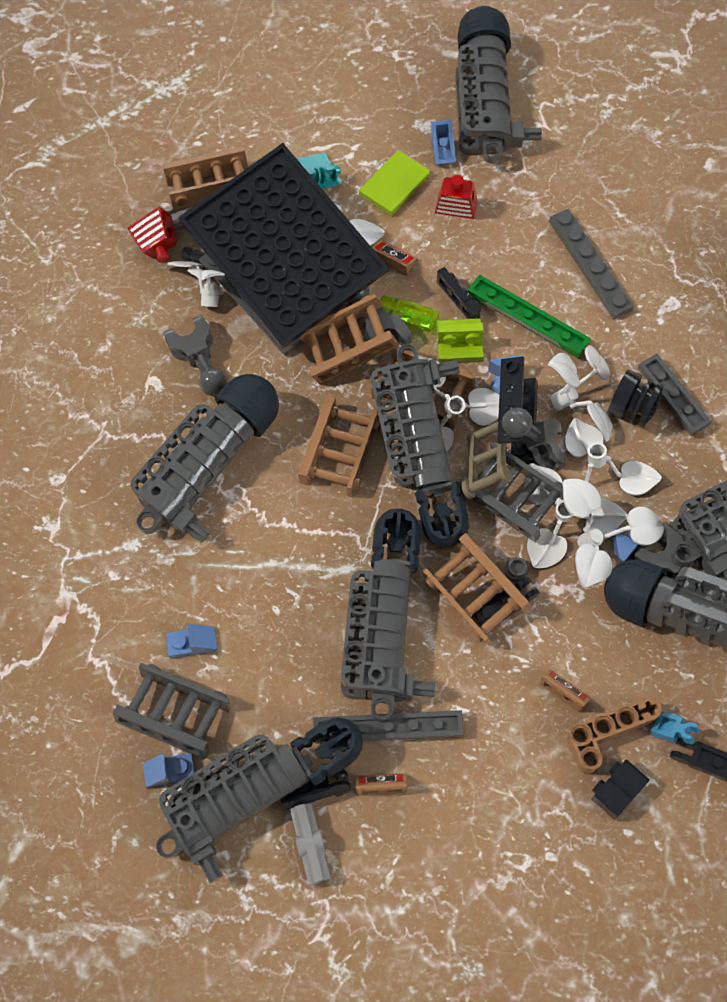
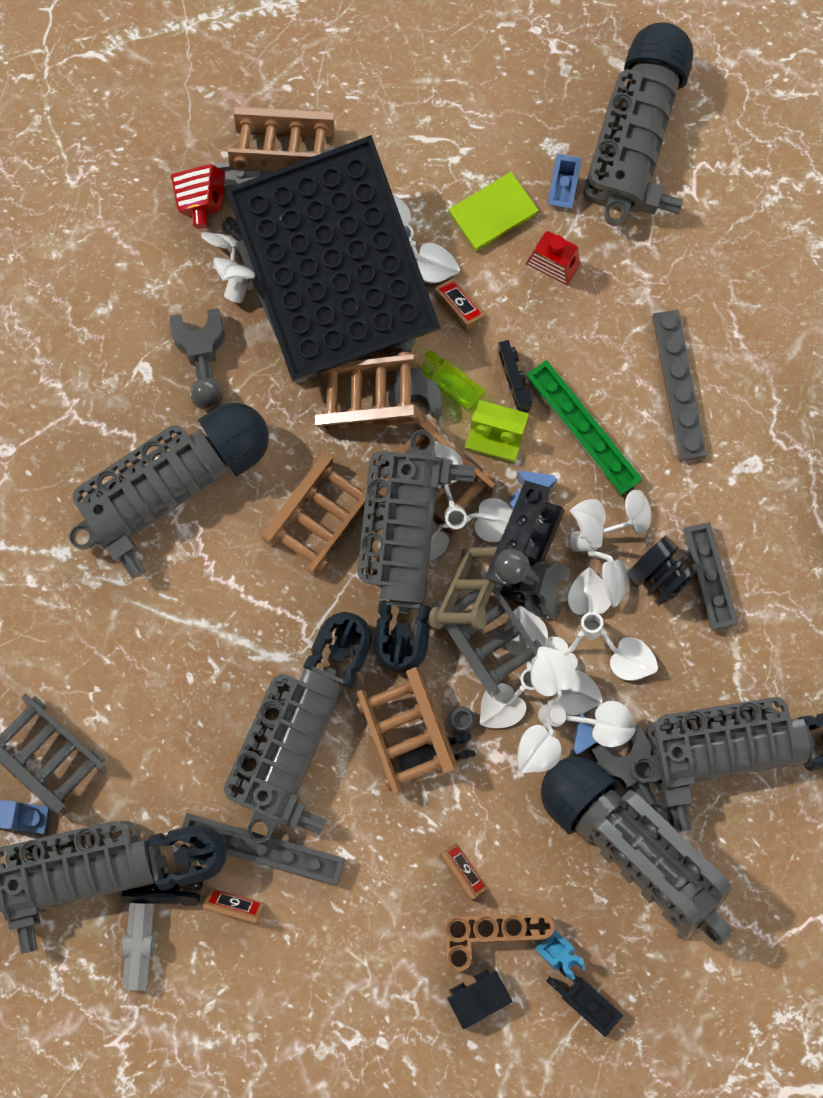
camera: 15 degrees right, 10 degrees up
(193, 641) = (89, 684): medium blue slope -> none
(321, 170) = (407, 169): teal hinge -> none

